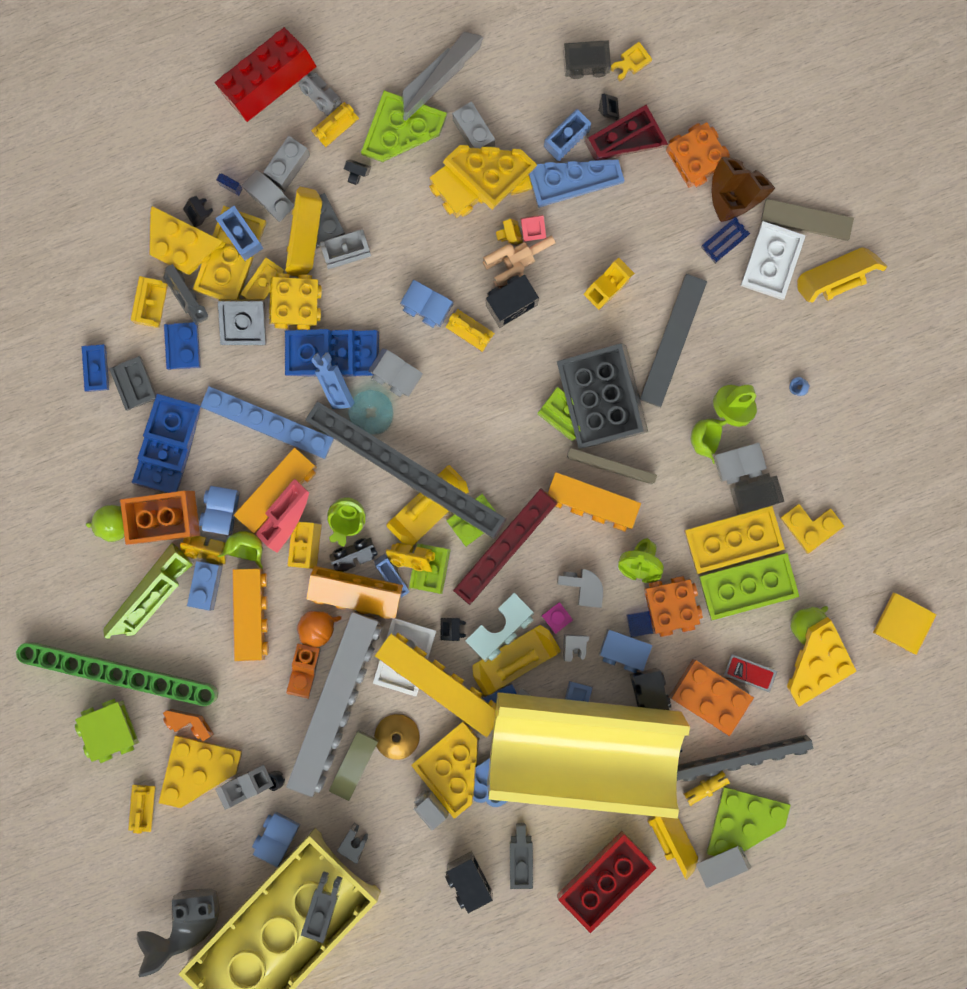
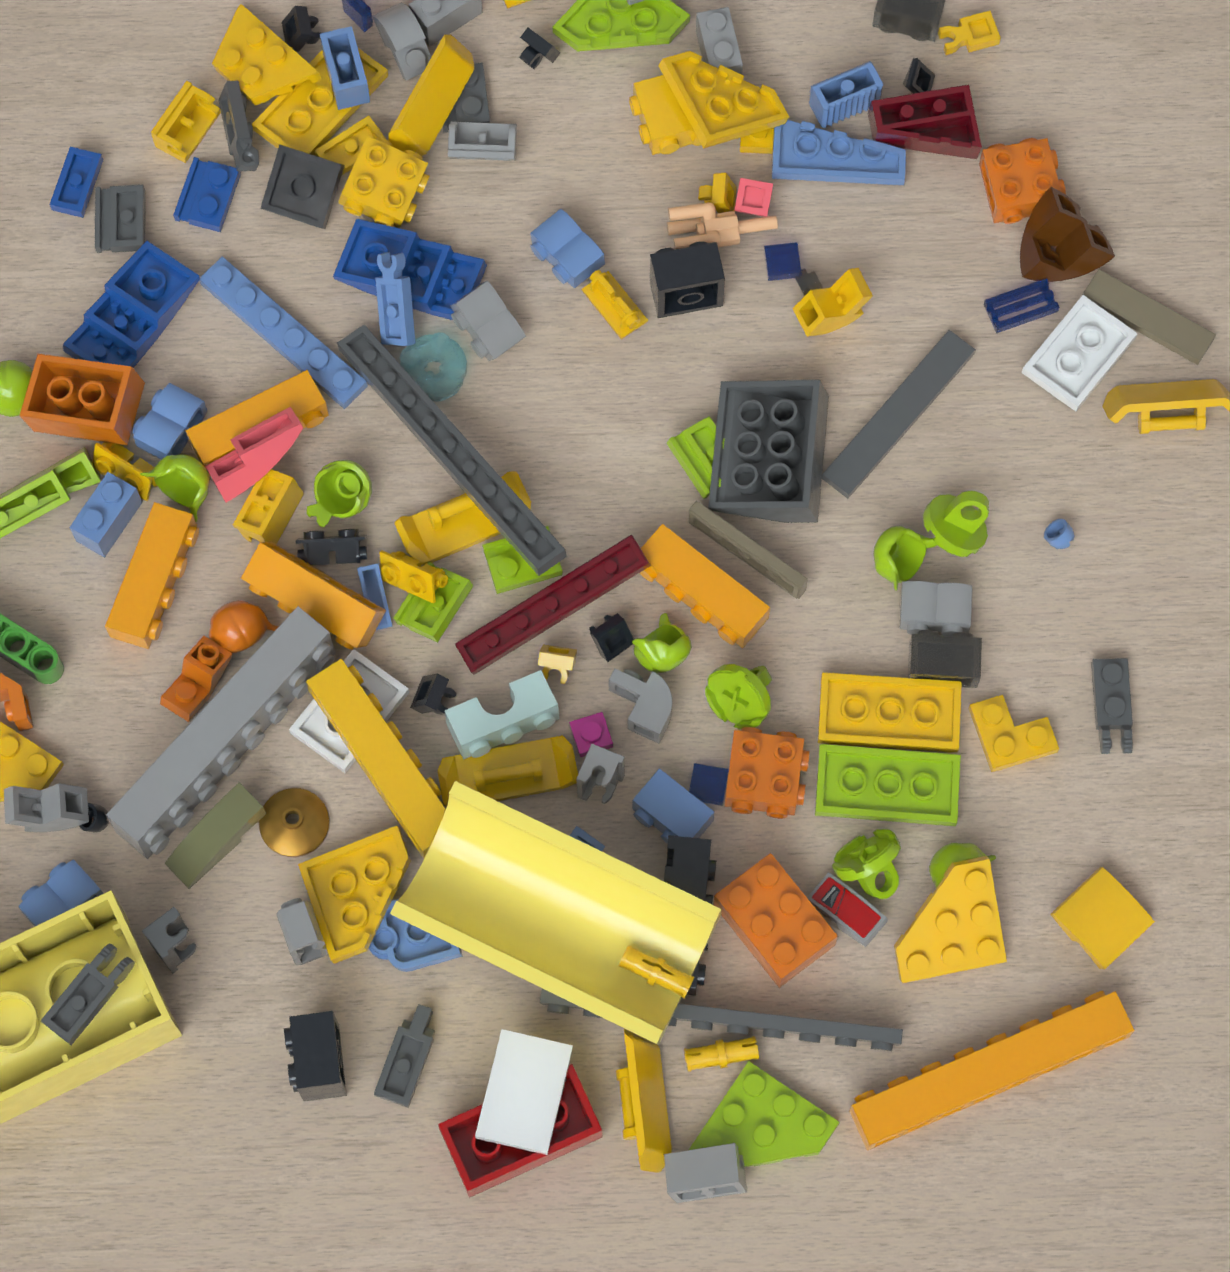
camera: 20 degrees right, 15 degrees down
(520, 578) = (557, 658): none -> yellow tile
(548, 553) = (611, 636): none -> black tile
(565, 262) = (782, 261): none -> clear blue tile
(582, 548) = (663, 647): none -> lime hair
(588, 273) = (808, 281): none -> clear smoke plate
(603, 863) = (524, 1092): none -> white tile
(658, 767) = (656, 971): none -> yellow pin
(754, 640) = (865, 858): none -> lime tile
(866, 484) = (1112, 701): none -> dark grey hinge
(870, 741) = (990, 1070): none -> light orange brick

